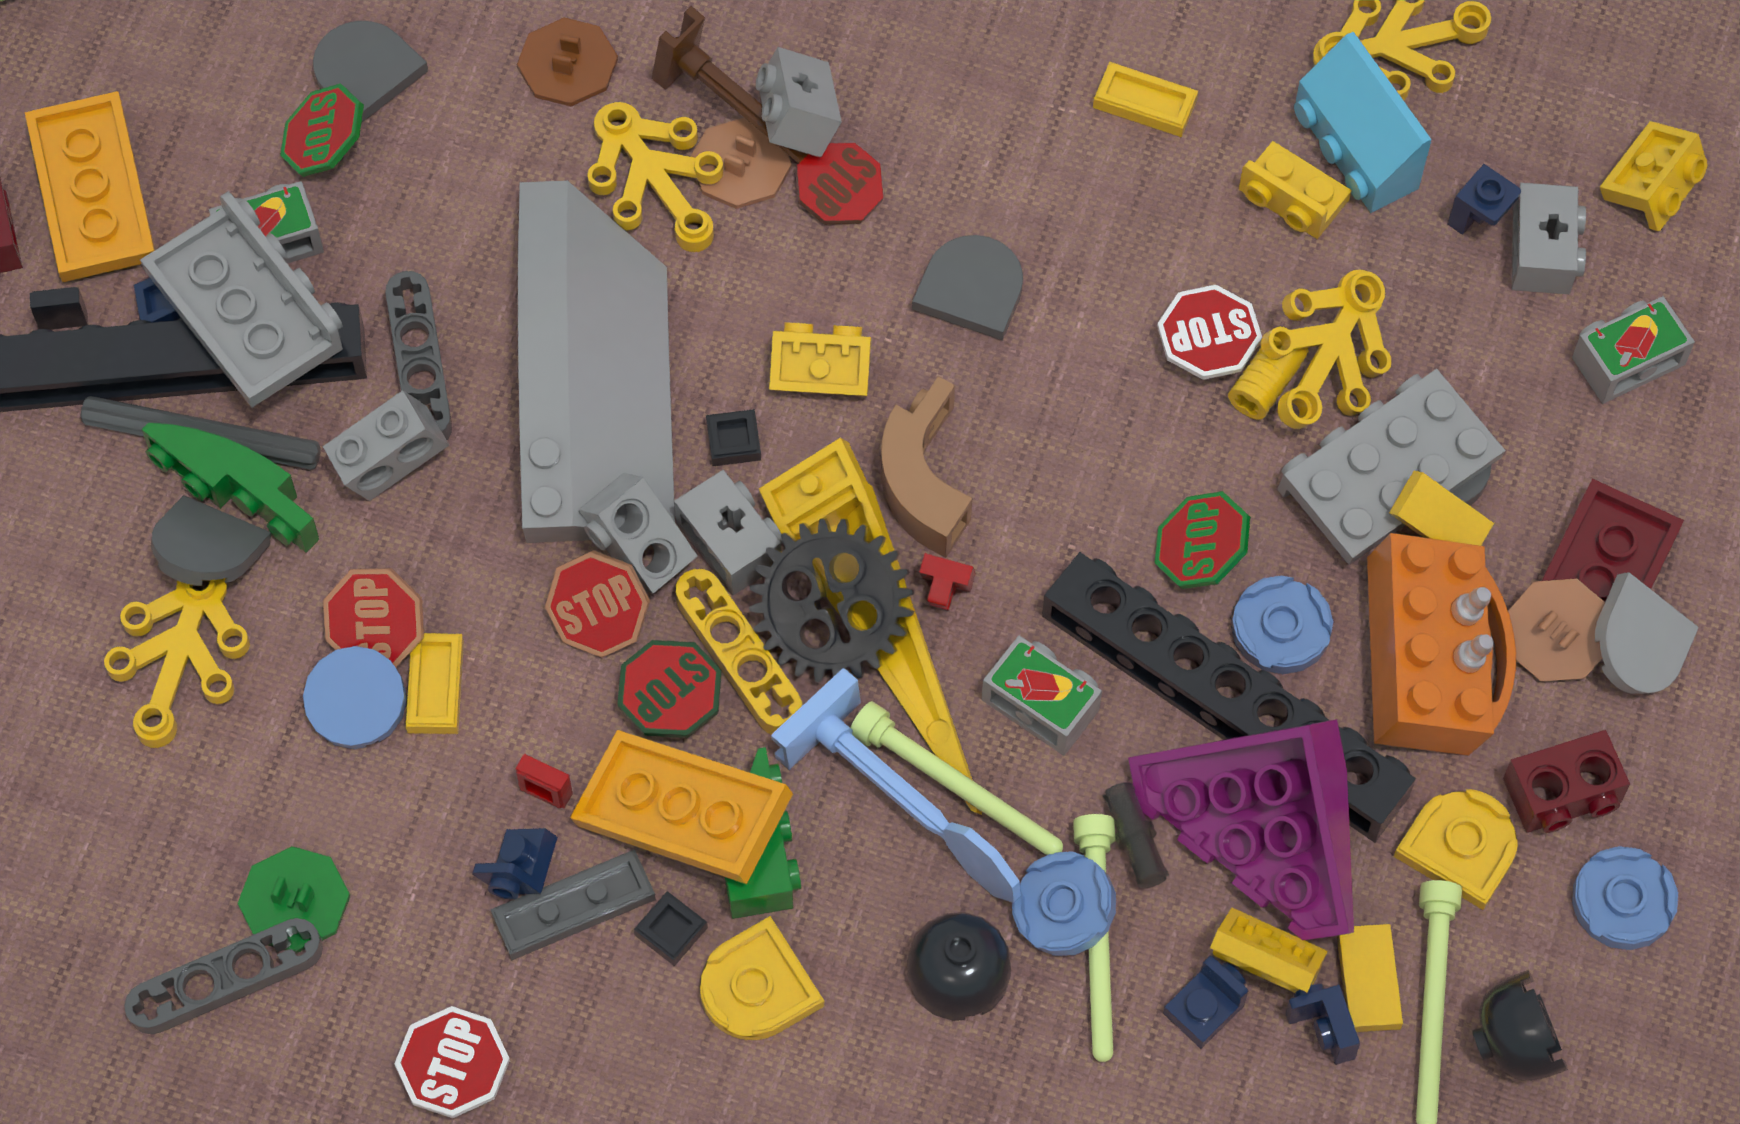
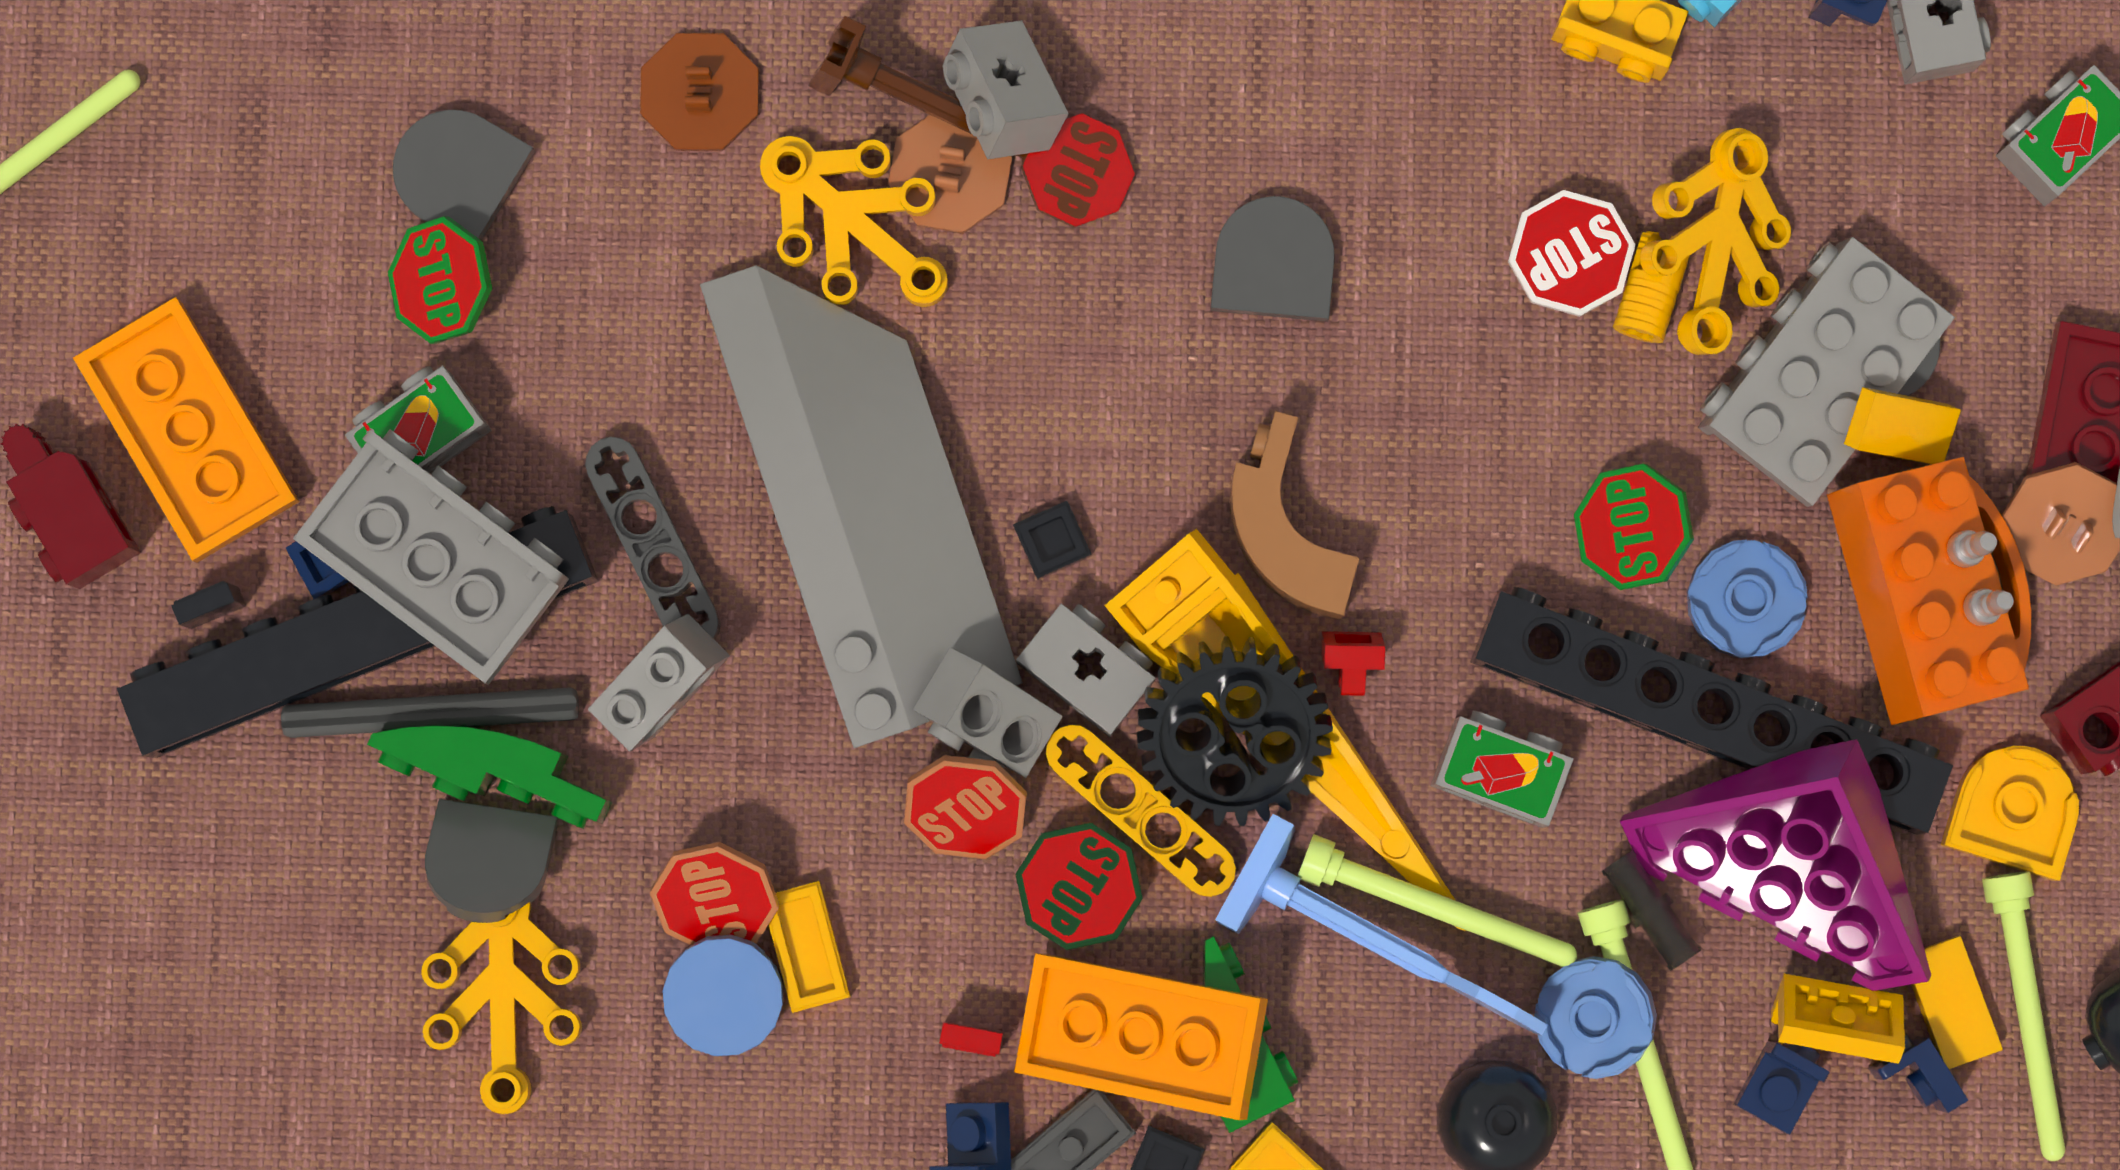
camera: 15 degrees left, 20 degrees up
(820, 361) = (1126, 415): yellow bracket -> none

